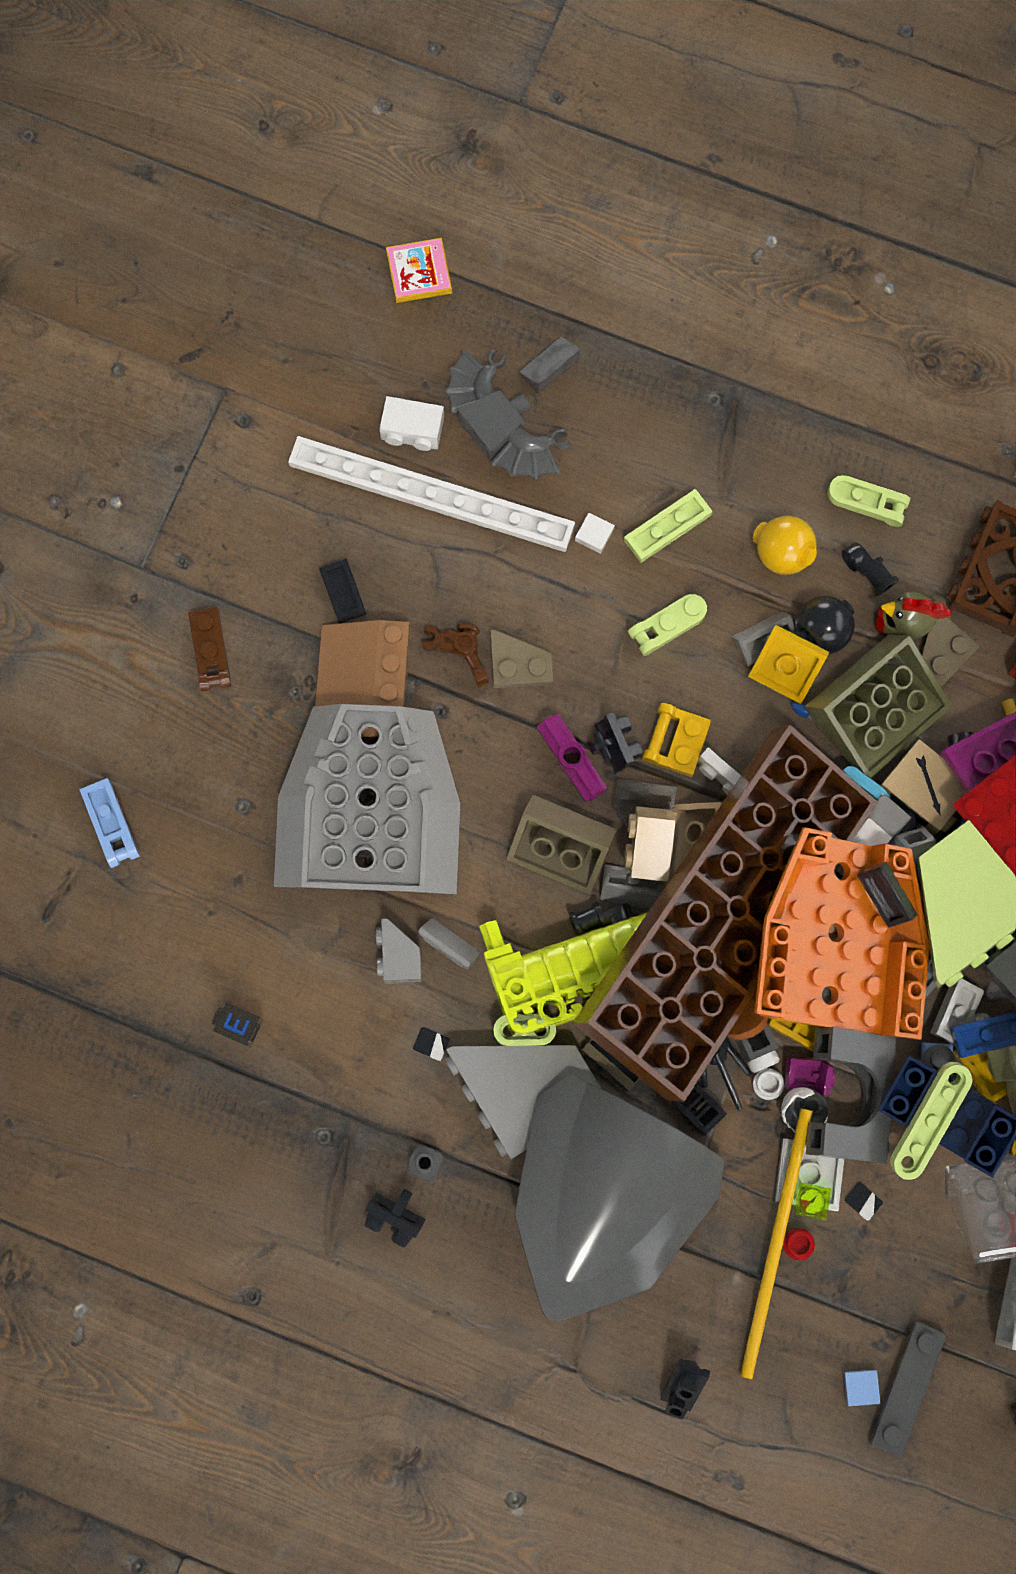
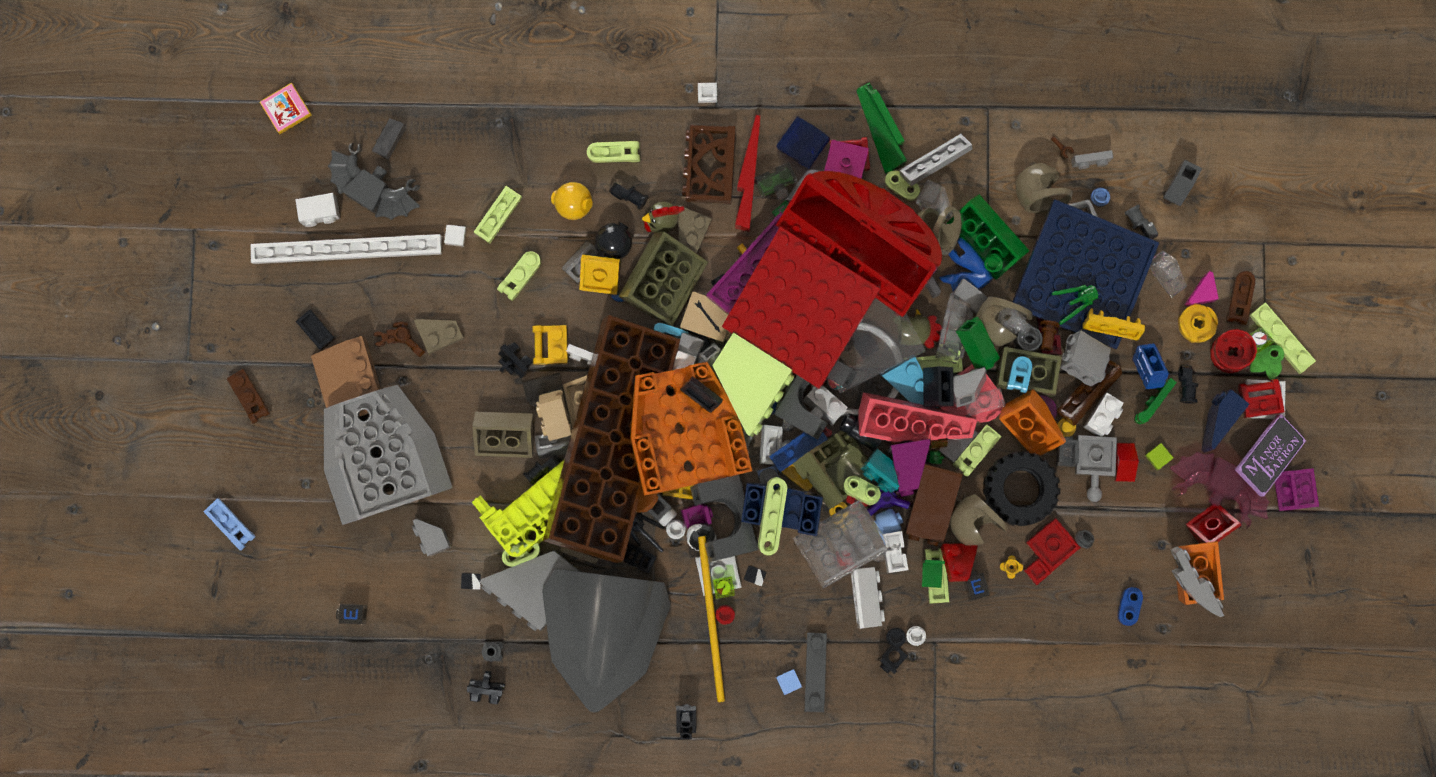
camera: 15 degrees left, 5 degrees up
(449, 944) = (459, 518): light grey slope -> none
(581, 774) = (481, 373): magenta piece -> none

